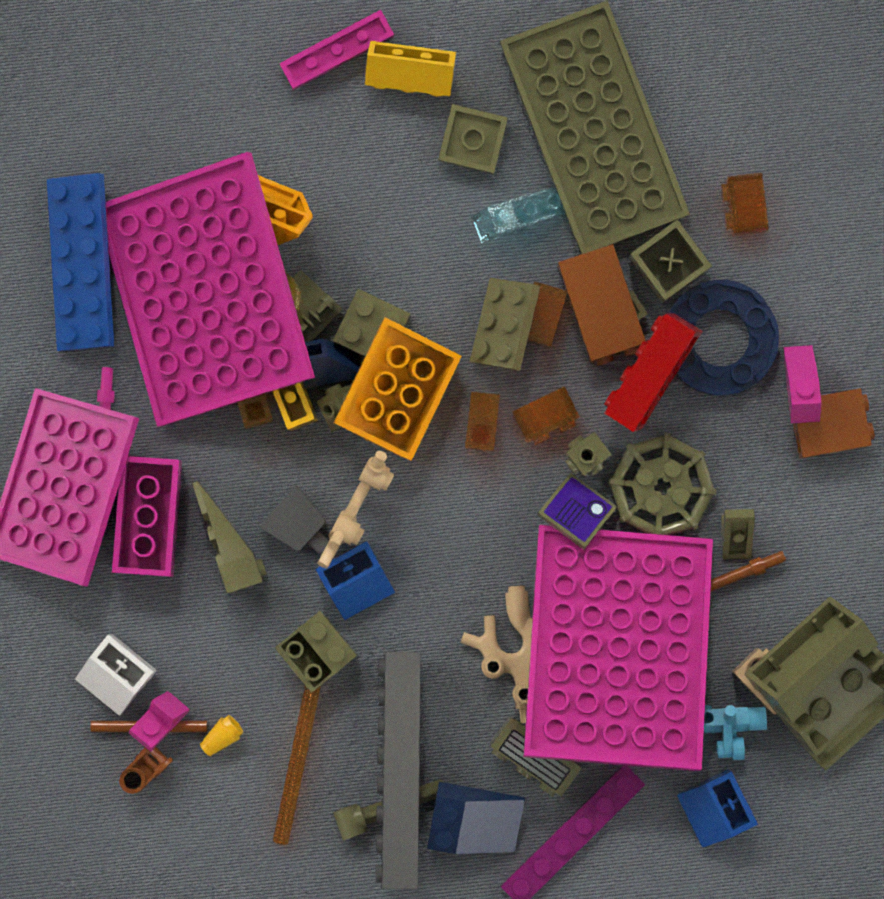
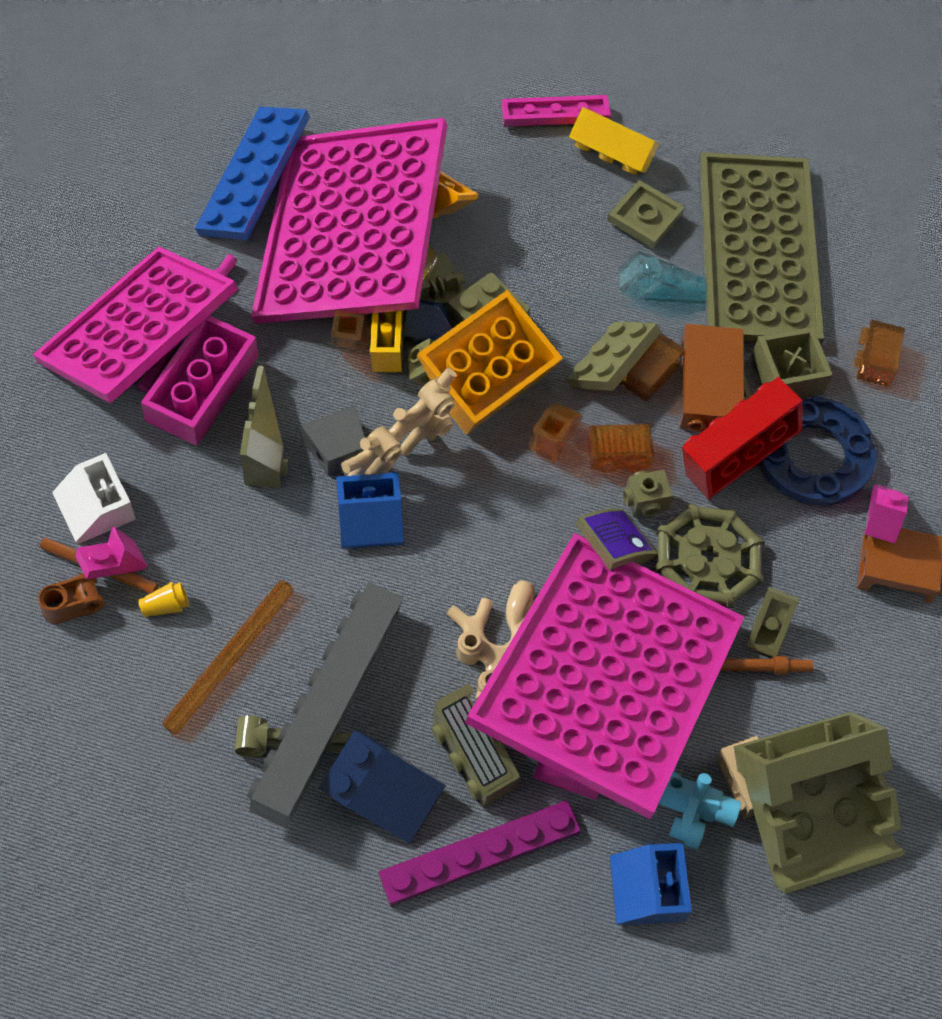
camera: 15 degrees right, 25 degrees down
(316, 651) = (301, 557): olive slope -> none

